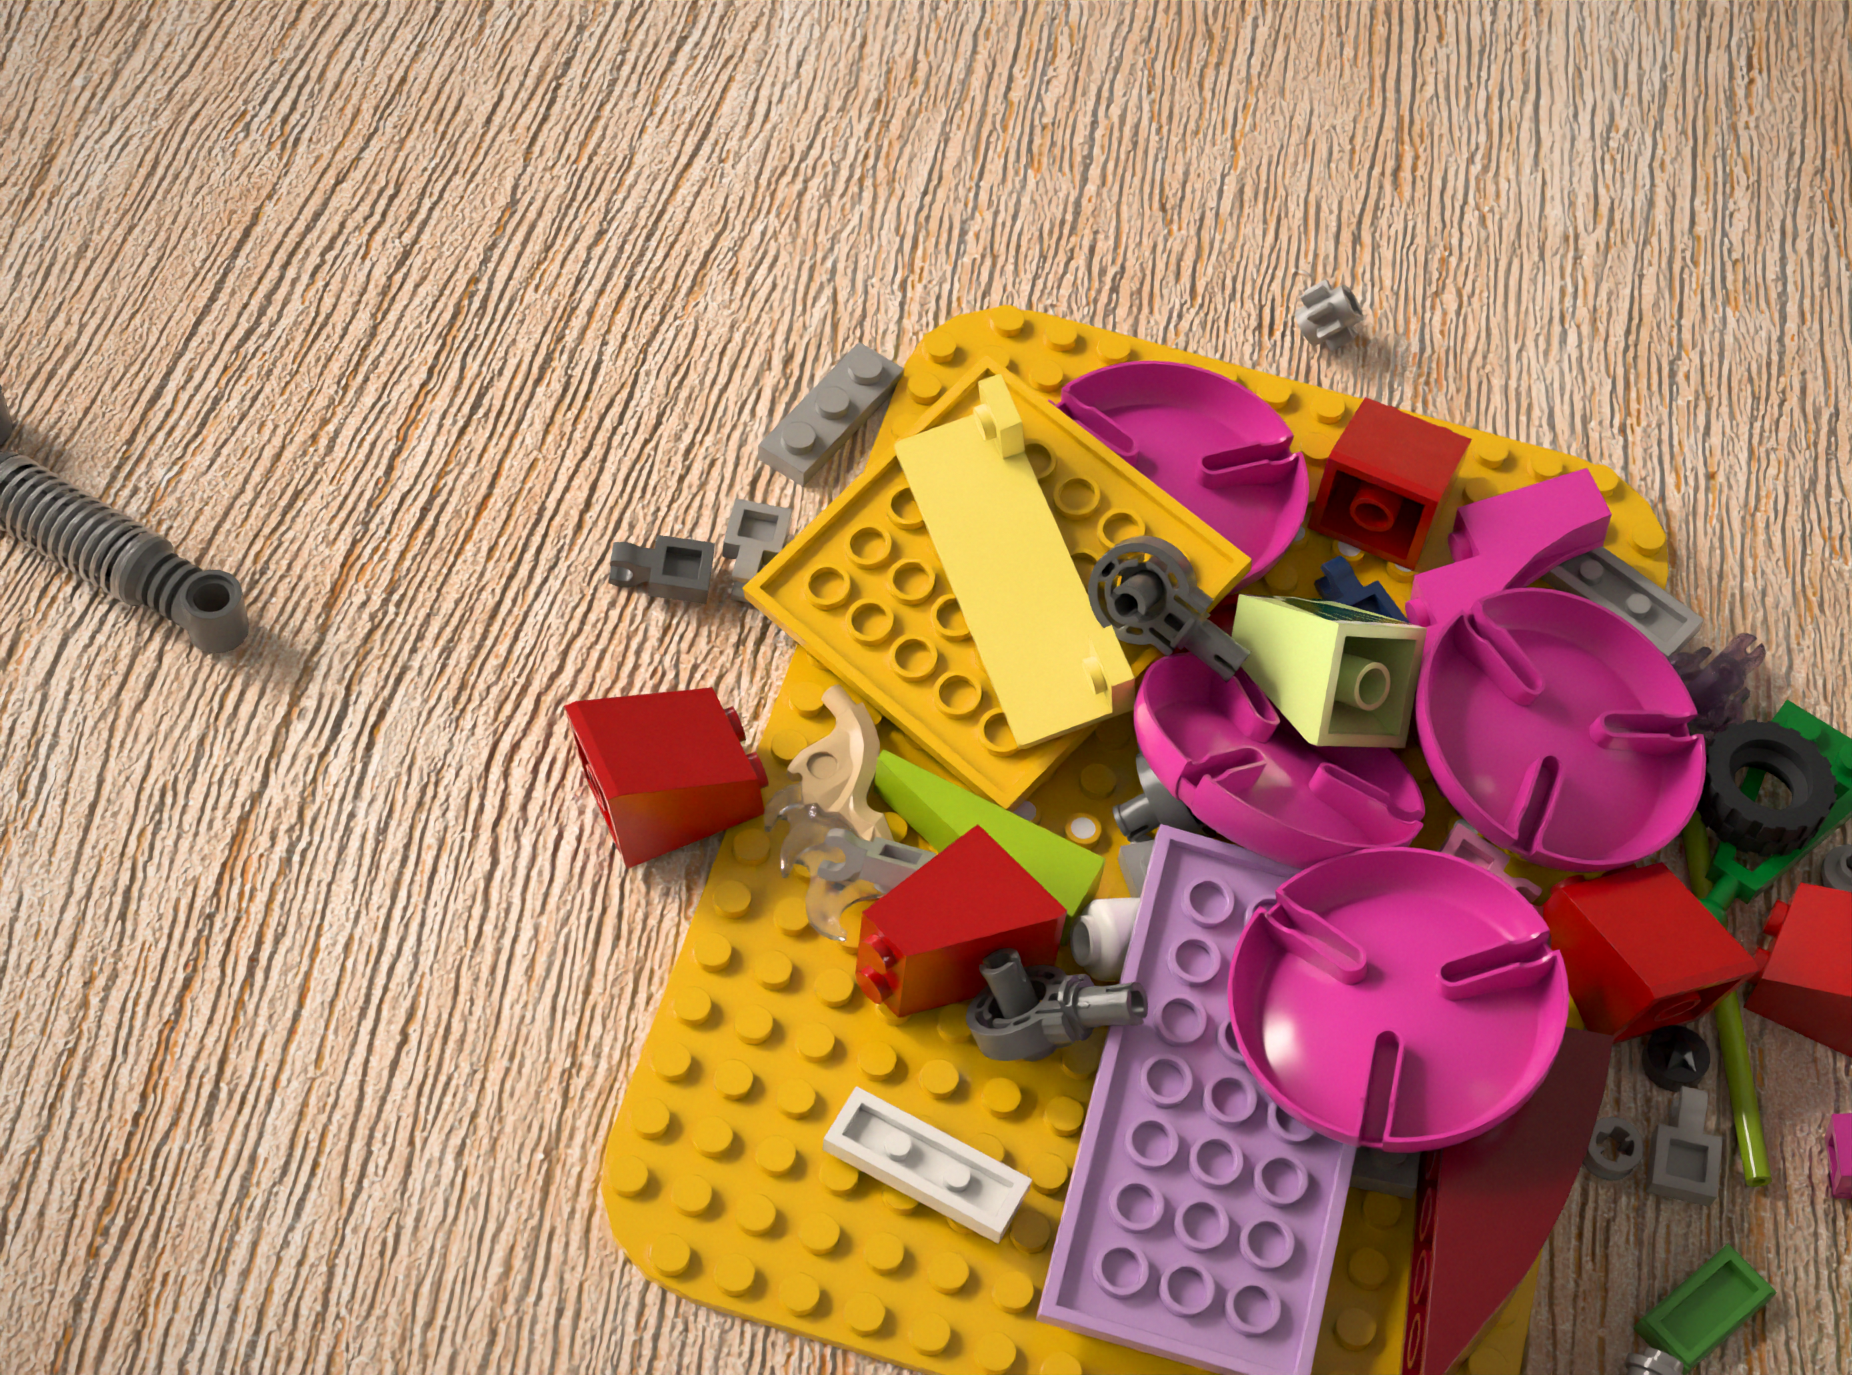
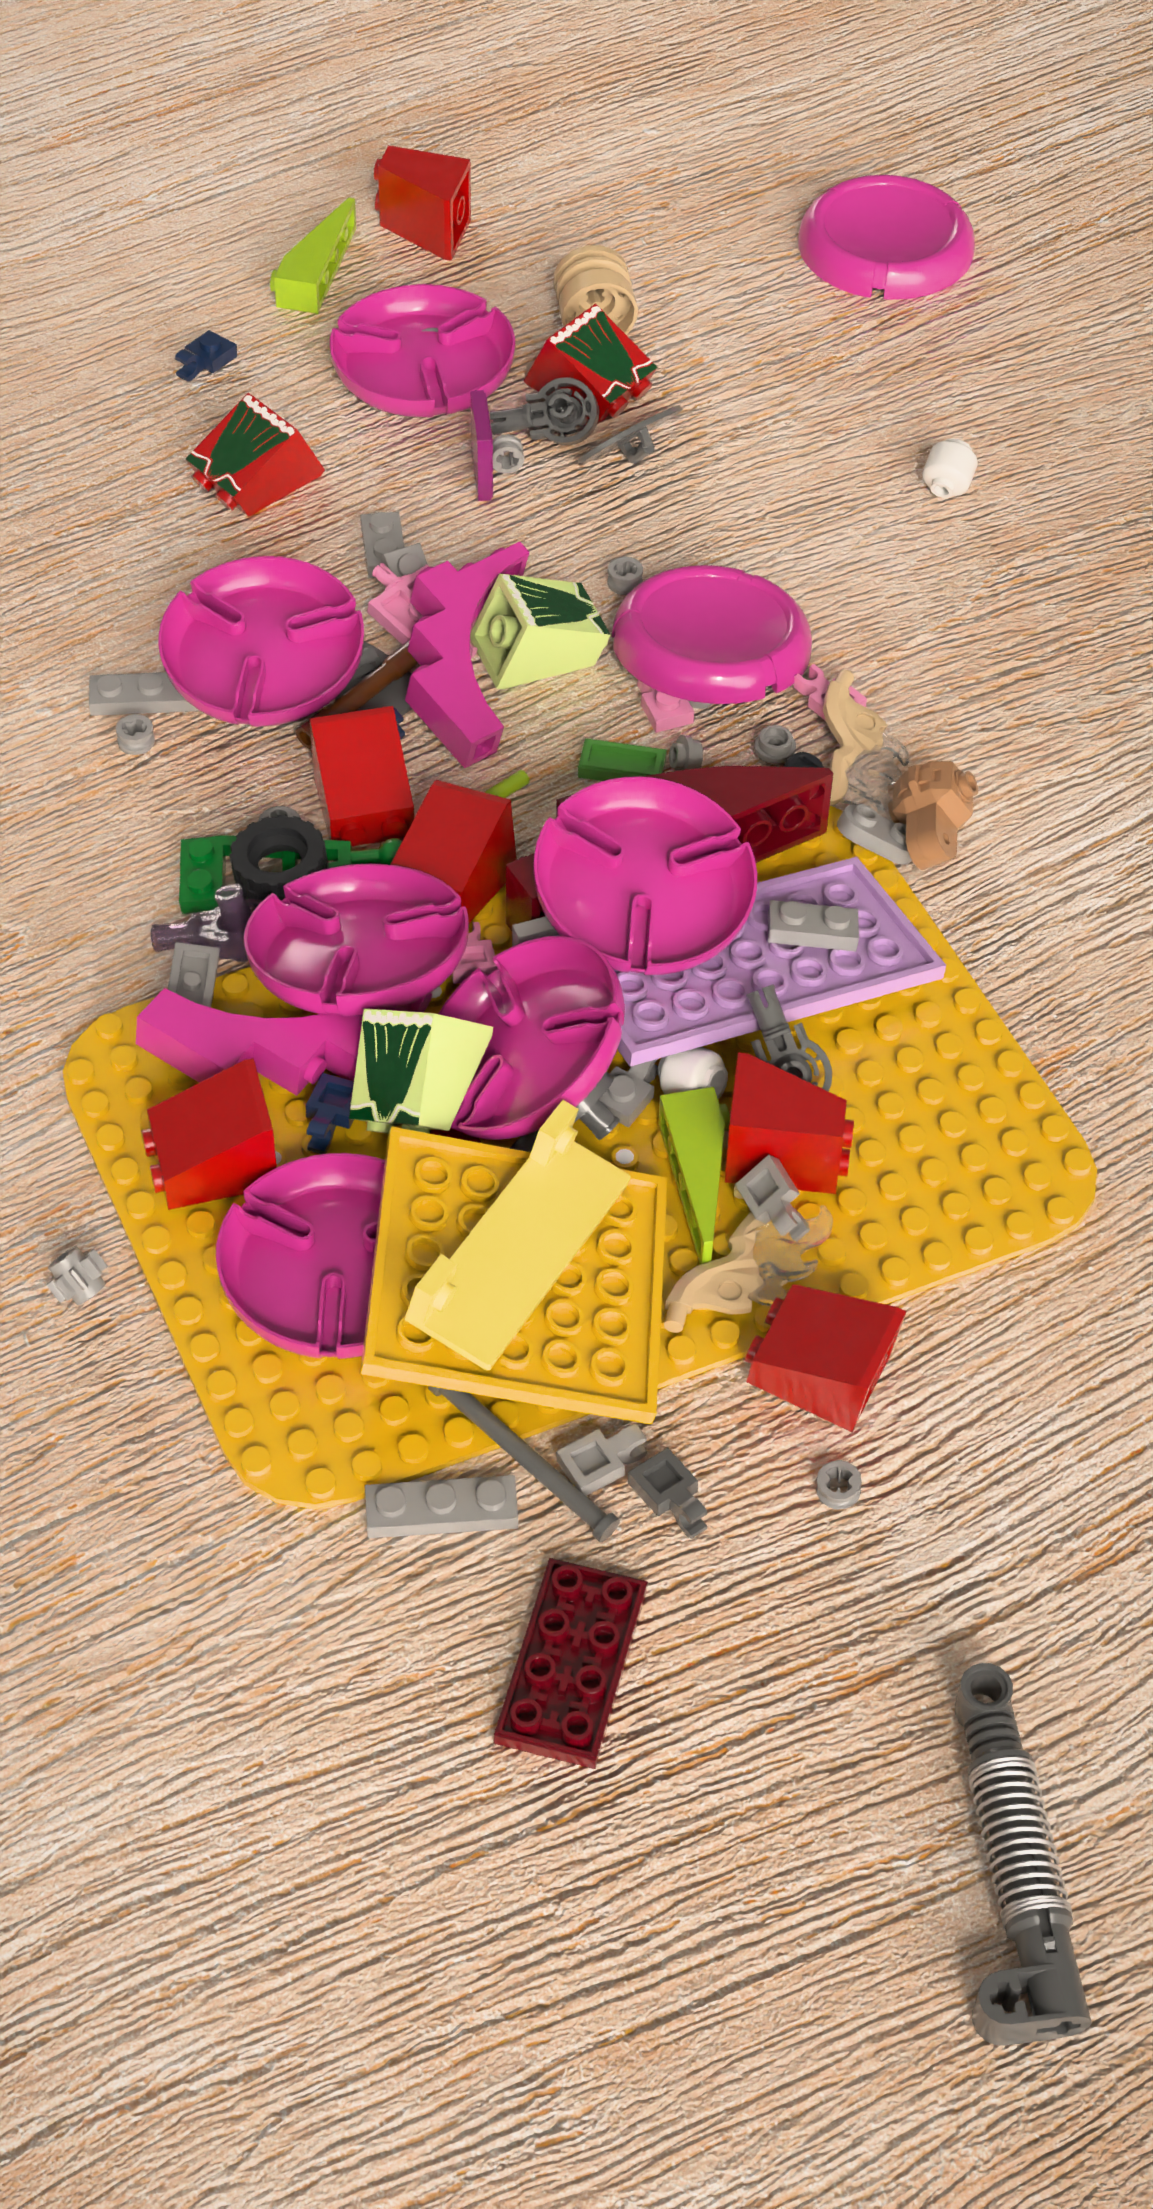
camera: 125 degrees left, 5 degrees down
(543, 723) = (840, 1470): none -> light grey bush
(589, 394) = (571, 1663): none -> dark red tile
(762, 492) = (581, 1505): none -> dark grey bar
(927, 1164) = (915, 1075): white plate -> none
(1160, 604) = (484, 1138): dark grey pin -> none
(1213, 1198) = (813, 925): none -> light grey plate
(1683, 1158) = (538, 803): light grey plate -> none

